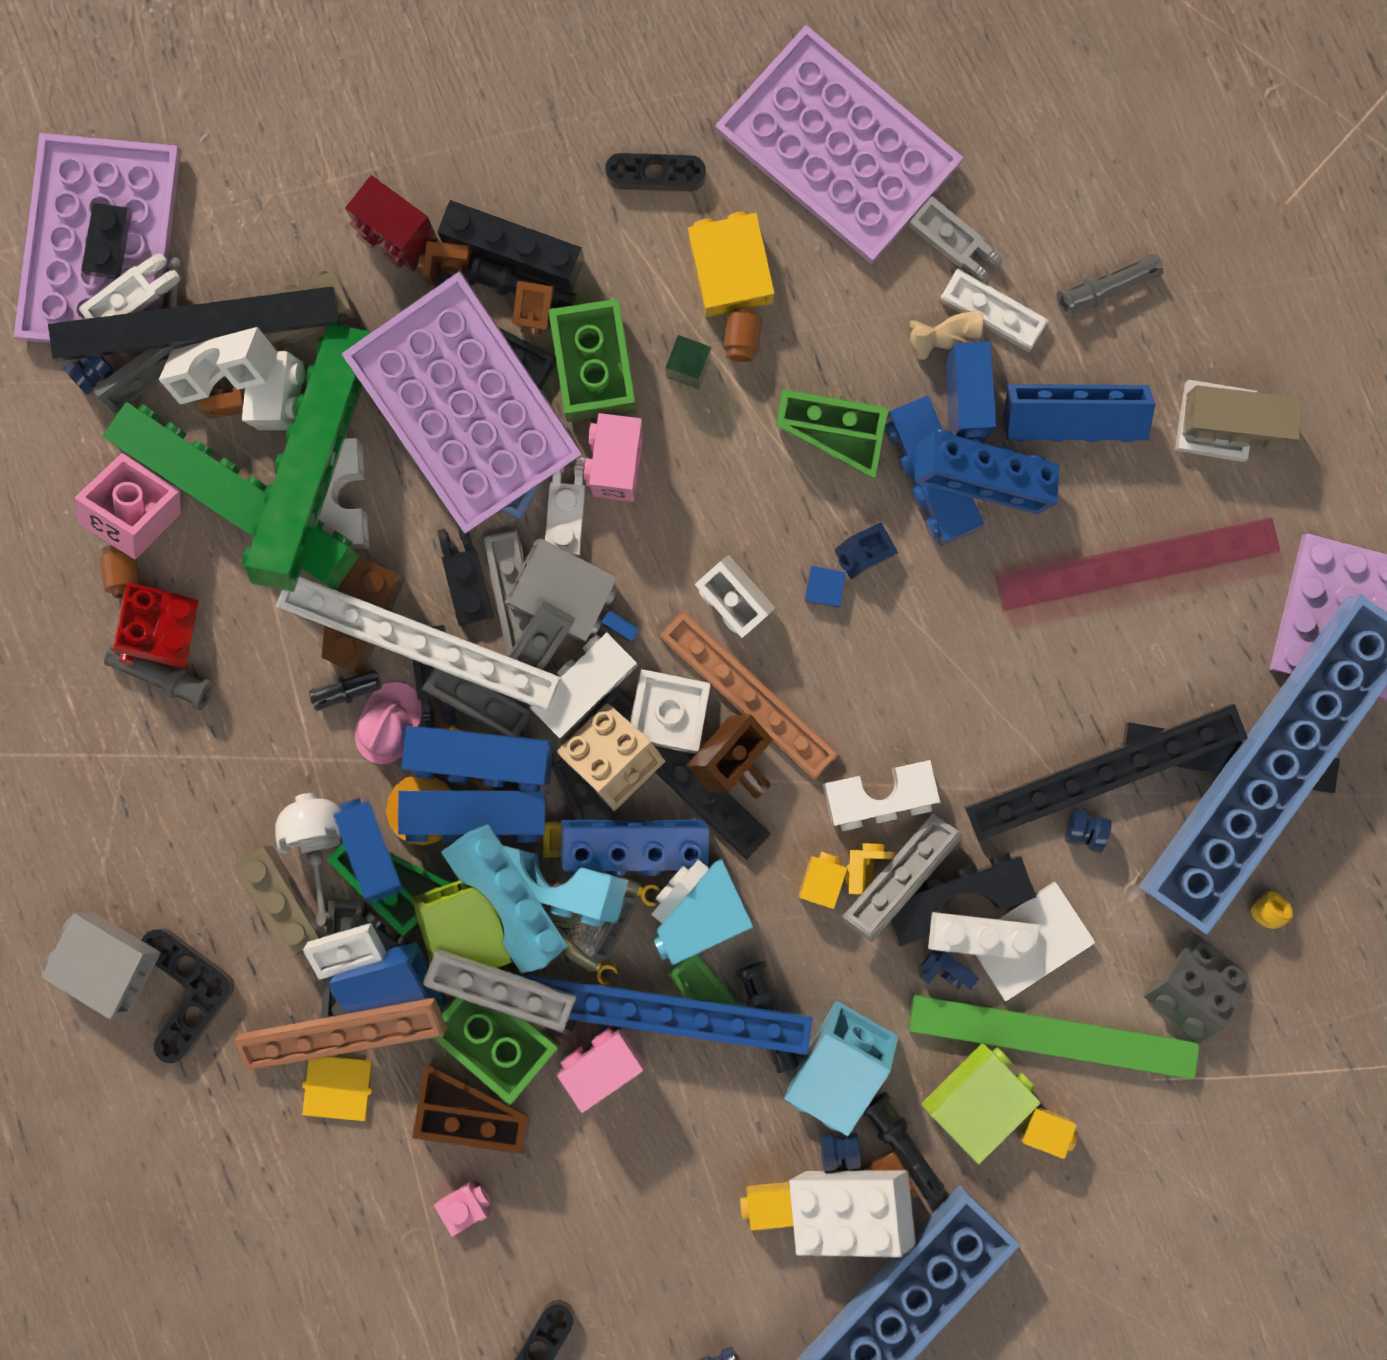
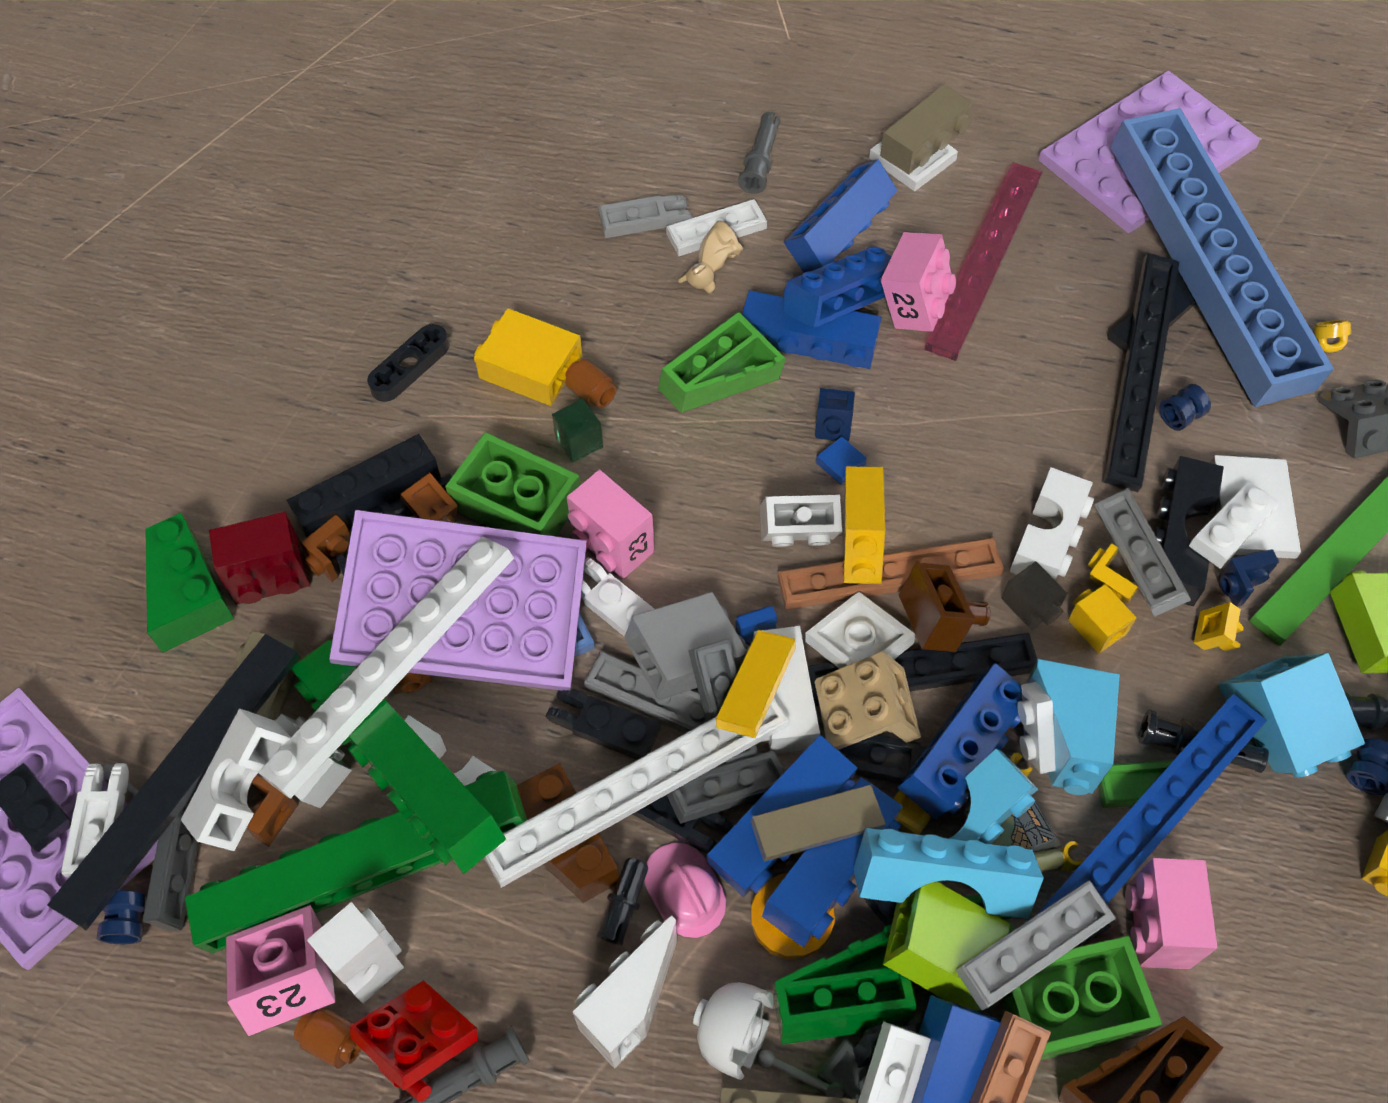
camera: 55 degrees left, 25 degrees down
(168, 549) = (358, 951): none -> white arch
(264, 747) = (621, 1008): none -> white slope
(333, 179) = (180, 586): none -> green wedge
(367, 851) = (811, 961): blue brick -> none
(369, 399) = (385, 667): none -> white plate
(479, 786) = (817, 822): none -> dark tan tile
(555, 667) = (756, 684): none -> yellow tile
(756, 651) = (863, 525): none -> yellow brick
(804, 820) = (1034, 596): none -> clear smoke brick
(838, 144) = (505, 239): lavender plate -> none
(880, 974) = (1218, 627): none -> yellow tile
(970, 390) = (766, 258): blue brick -> none
(1044, 530) = (918, 281): none -> bright pink brick

